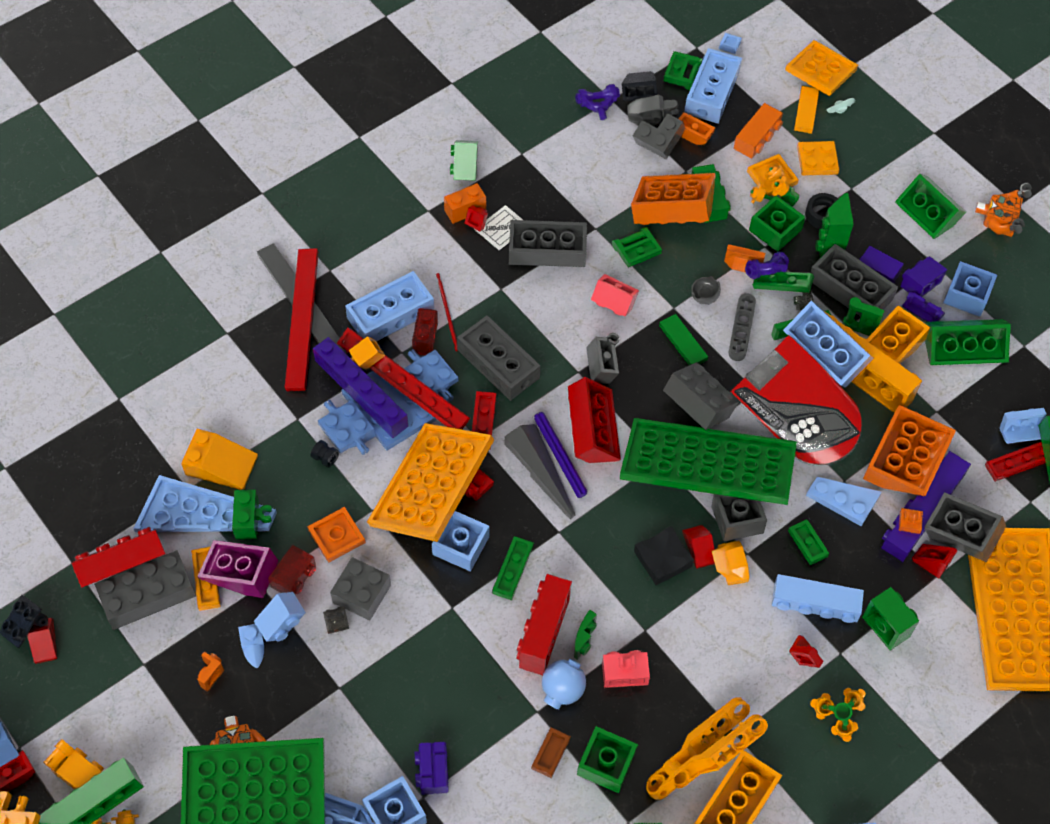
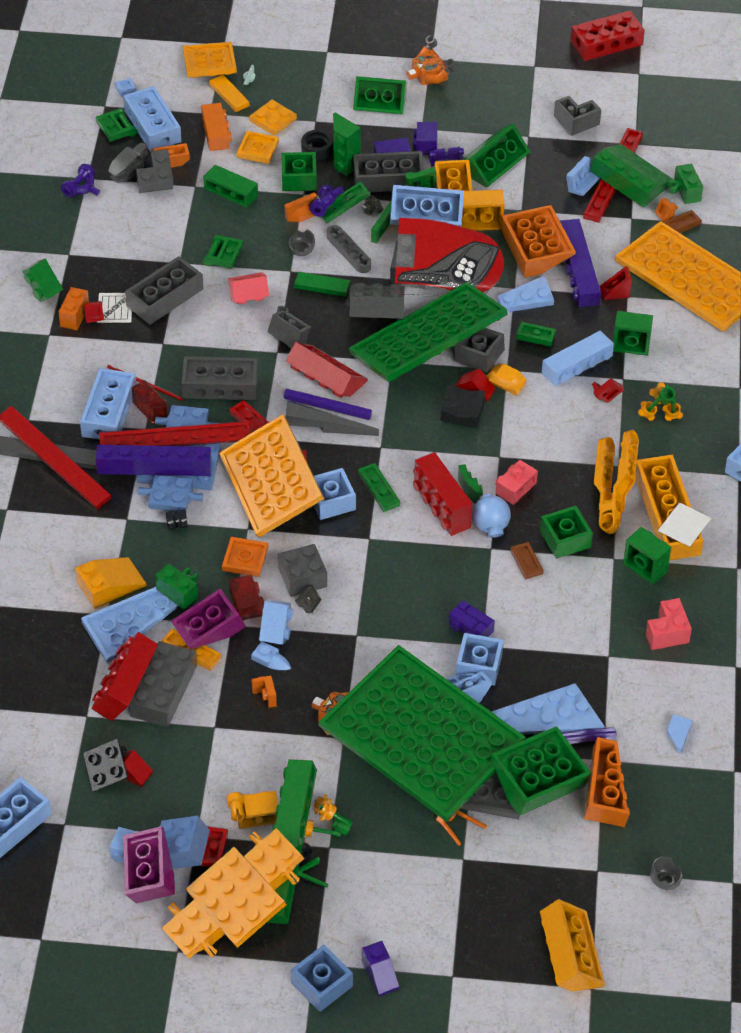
camera: 45 degrees left, 10 degrees down
(366, 353) = (135, 433): light orange brick -> none
(639, 85) = (101, 152): black torso -> none
(673, 199) = (215, 203): orange slope -> none
(779, 186) = (278, 145): light orange plant -> none
(910, 520) = (583, 272): orange tile -> none
(965, 527) = (616, 250): dark grey brick -> none
(970, 289) = (462, 124): medium blue brick -> none

